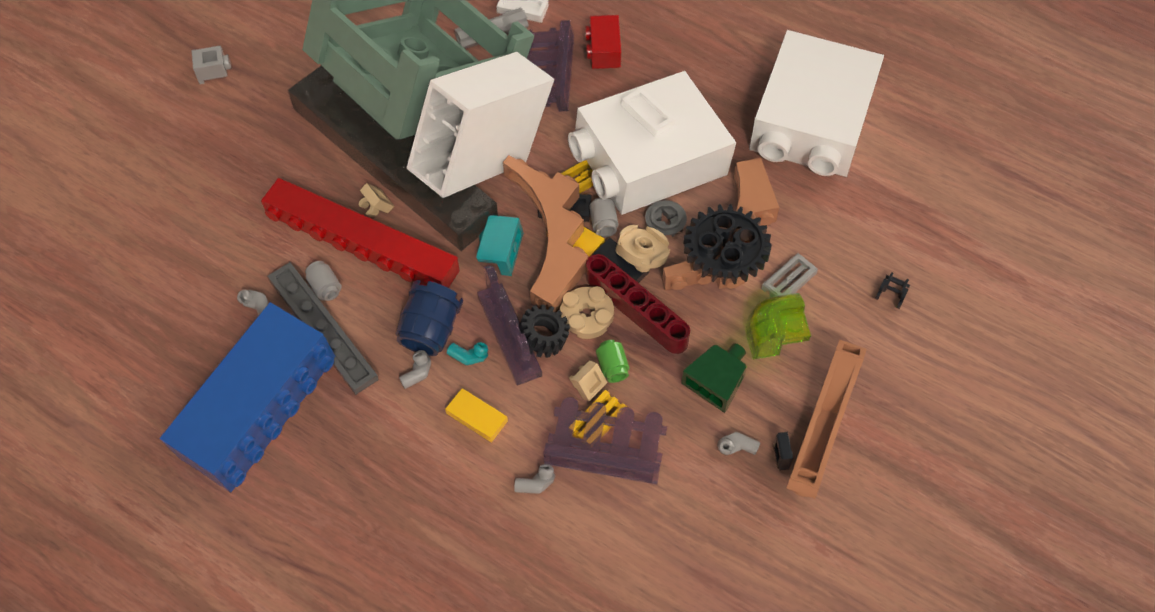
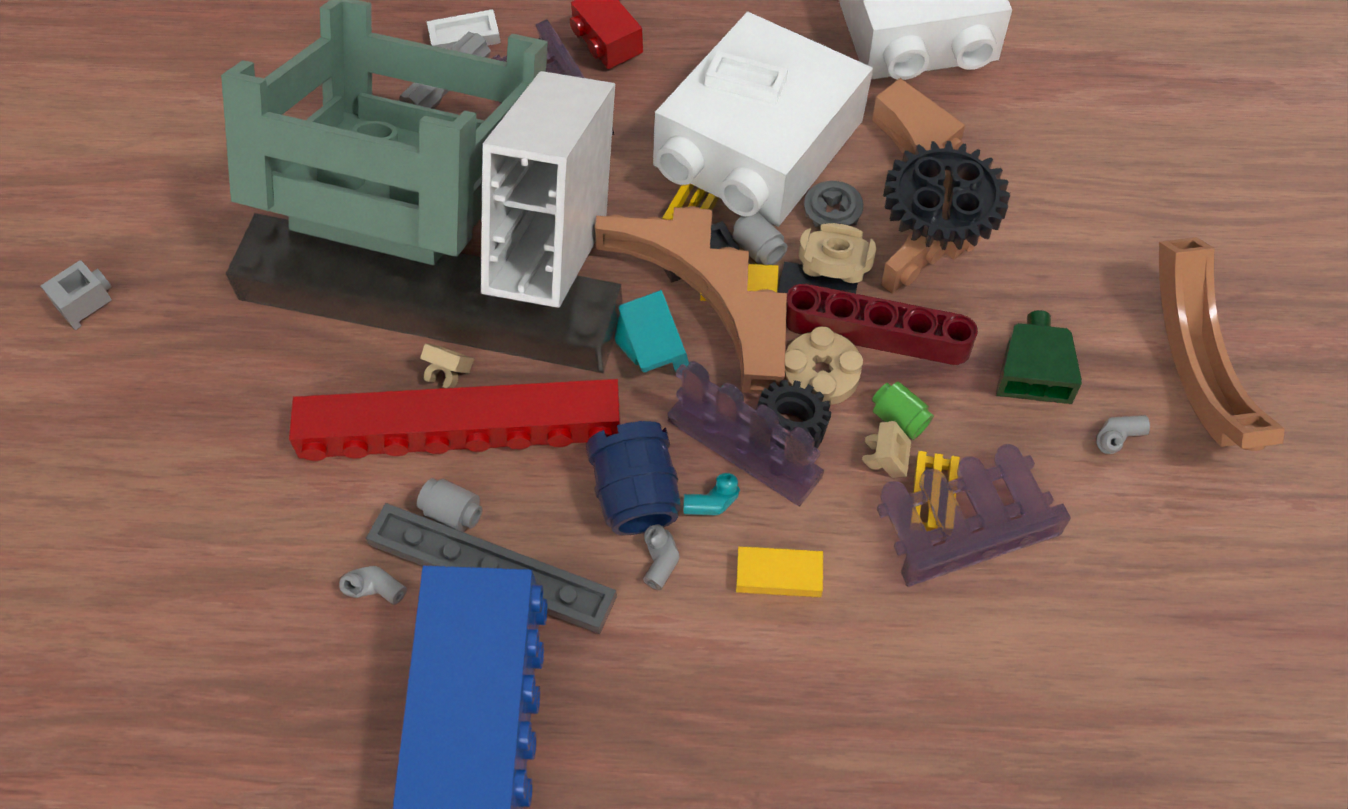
camera: 30 degrees left, 0 degrees up
(538, 483) = (922, 614): light grey arm -> none
(776, 323) = (1061, 264): clear neon green brick -> none
(783, 451) = (1181, 411): black tile -> none
(812, 271) = (1022, 228): light grey tile -> none
(885, 285) = (1163, 159): black piece -> none

